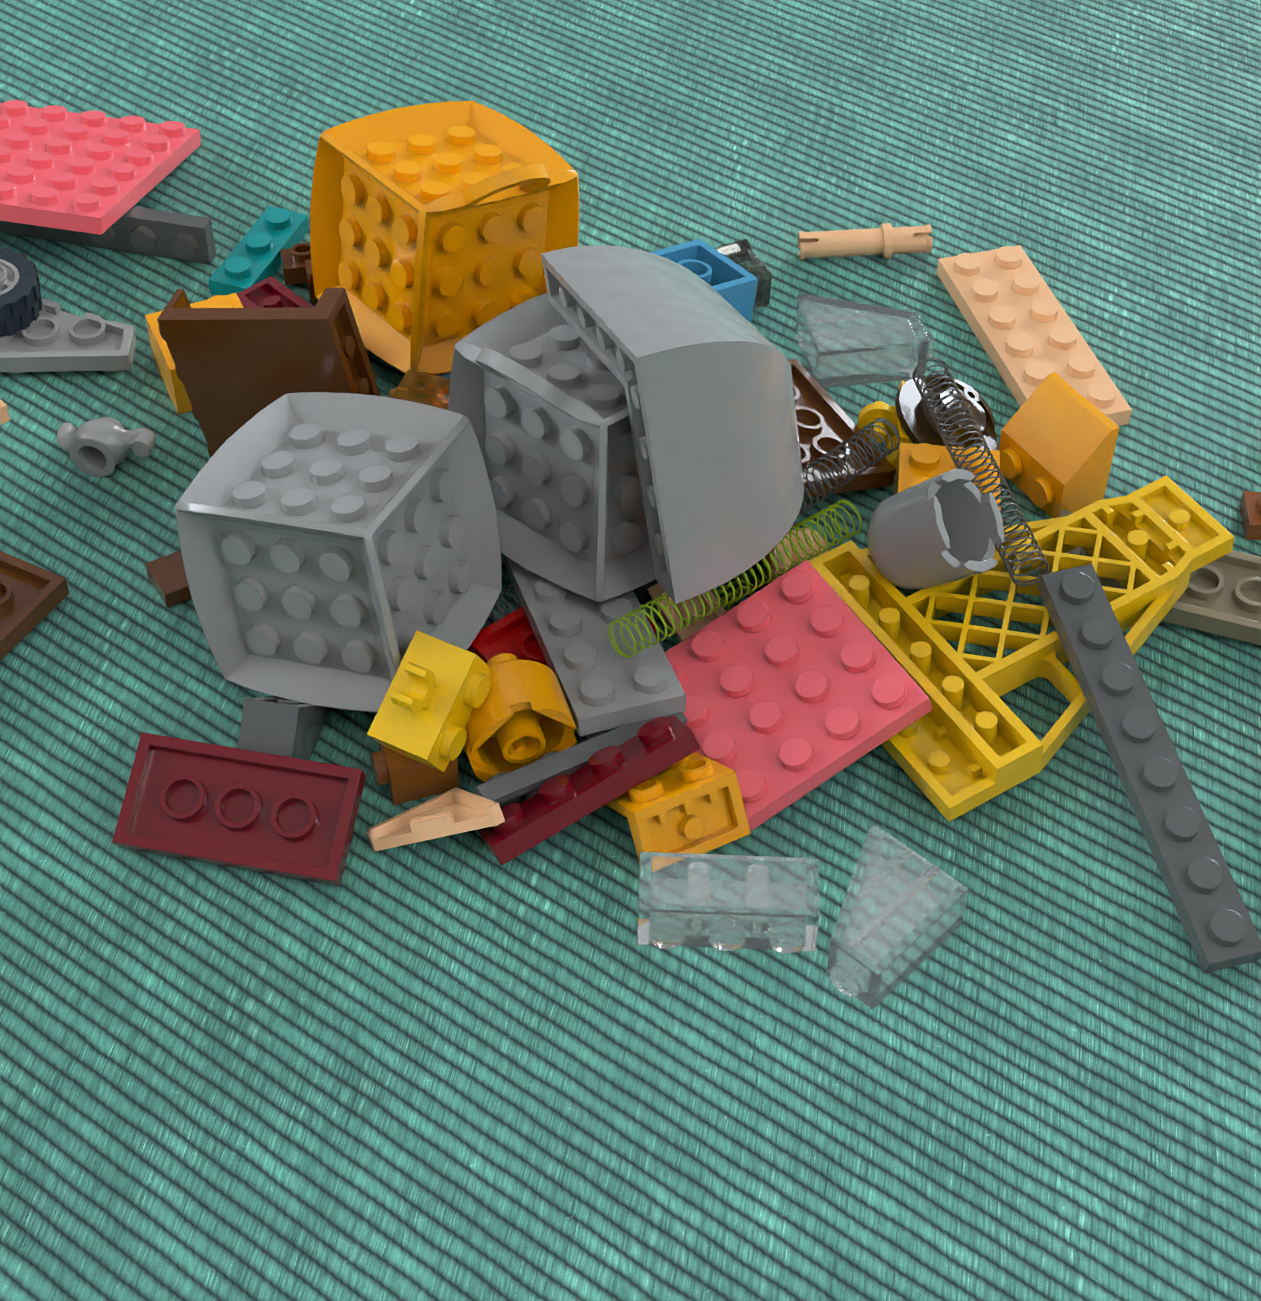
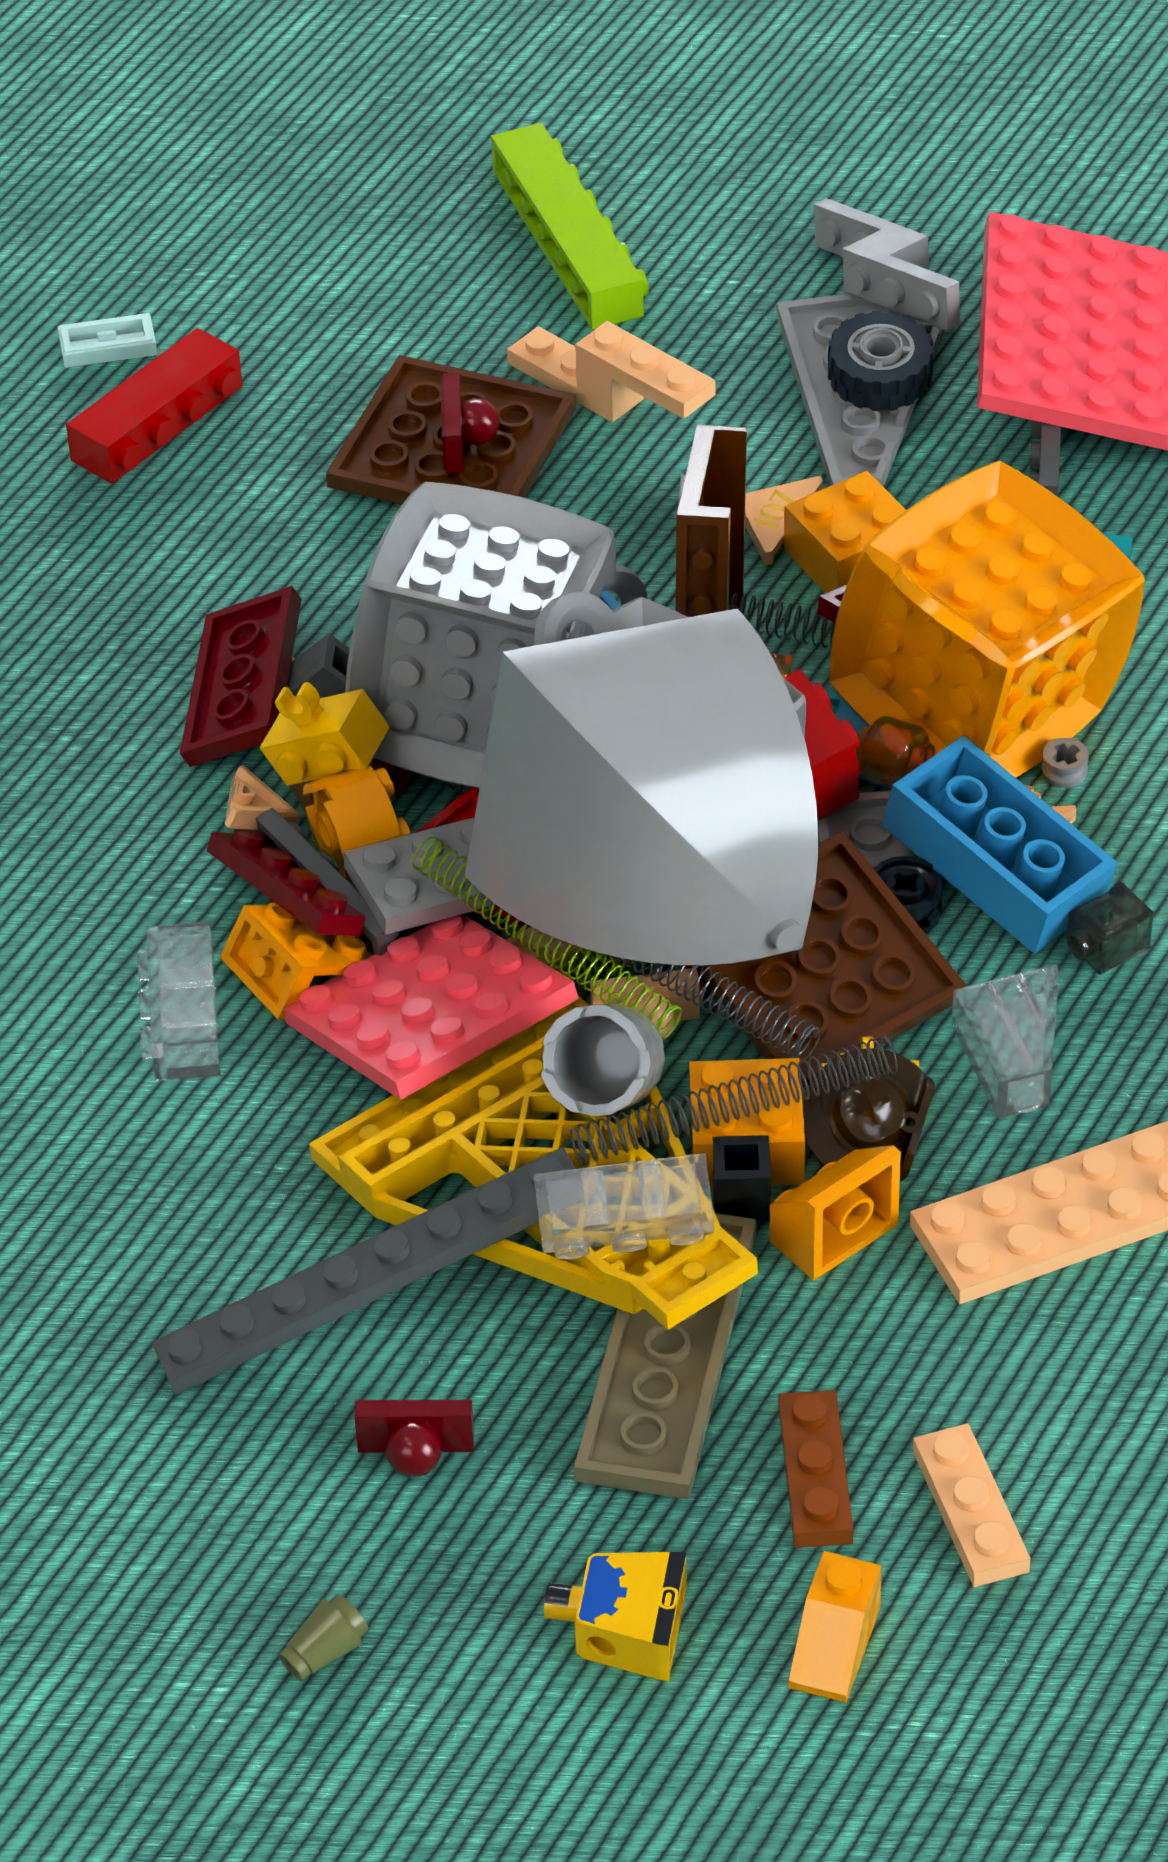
camera: 85 degrees right, 0 degrees up
(142, 406) = (766, 513): none -> light nougat tile
(891, 918) = (177, 1108): clear slope -> none
(1031, 489) = (742, 1176): none -> black brick
(1132, 531) = (624, 1205): none -> clear brick

